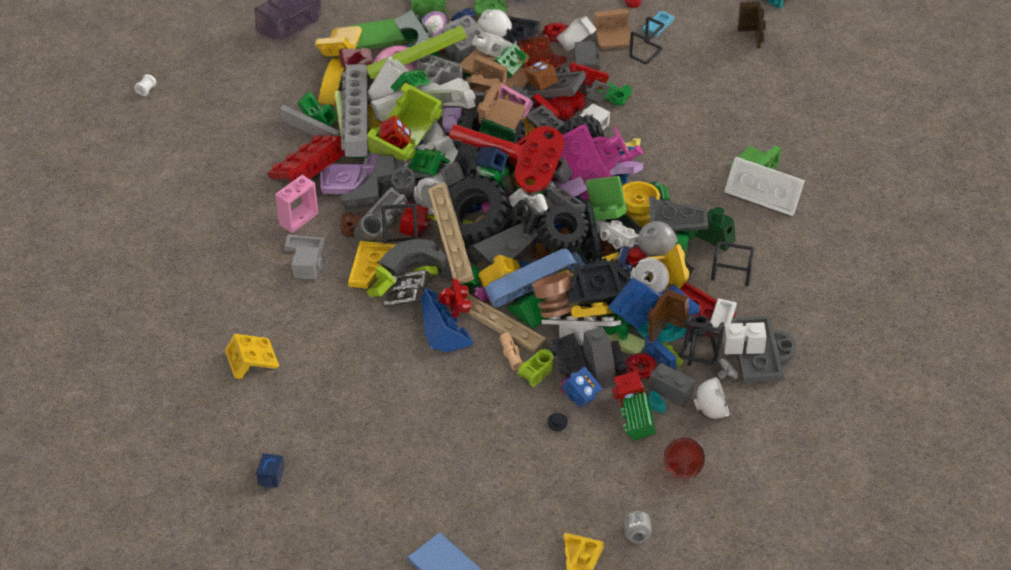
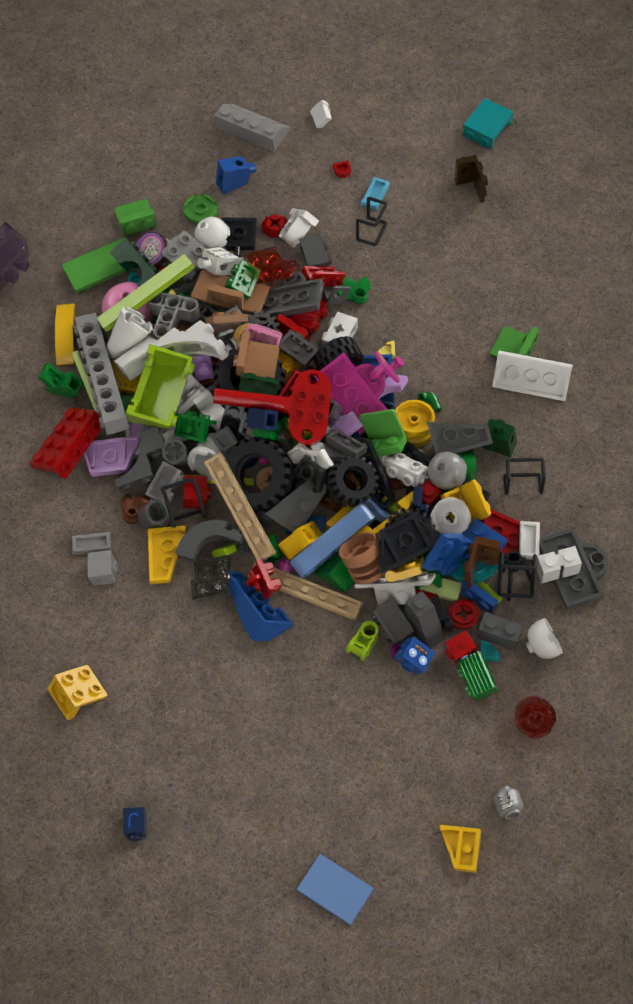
camera: 10 degrees left, 15 degrees up
(306, 123) = (55, 397): light grey tile -> none
(307, 210) = (67, 507): bright pink window -> none
(339, 39) = (60, 286): yellow bracket -> none
(355, 57) = (81, 305): dark red tile -> none
(383, 283) = (184, 576): lime tile -> none
(395, 132) = (153, 402): red head -> none
(414, 78) = (155, 335): green bracket -> none
(467, 11) = (179, 219): clear blue arm -> none
(510, 351) = (333, 626): light nougat pin -> none
(541, 75) = (279, 291): dark orange head -> none
(557, 422) = (399, 698): black plate -> none
(612, 28) = (332, 212): medium nougat bracket -> none
(727, 369) = (548, 600): light grey plant -> none

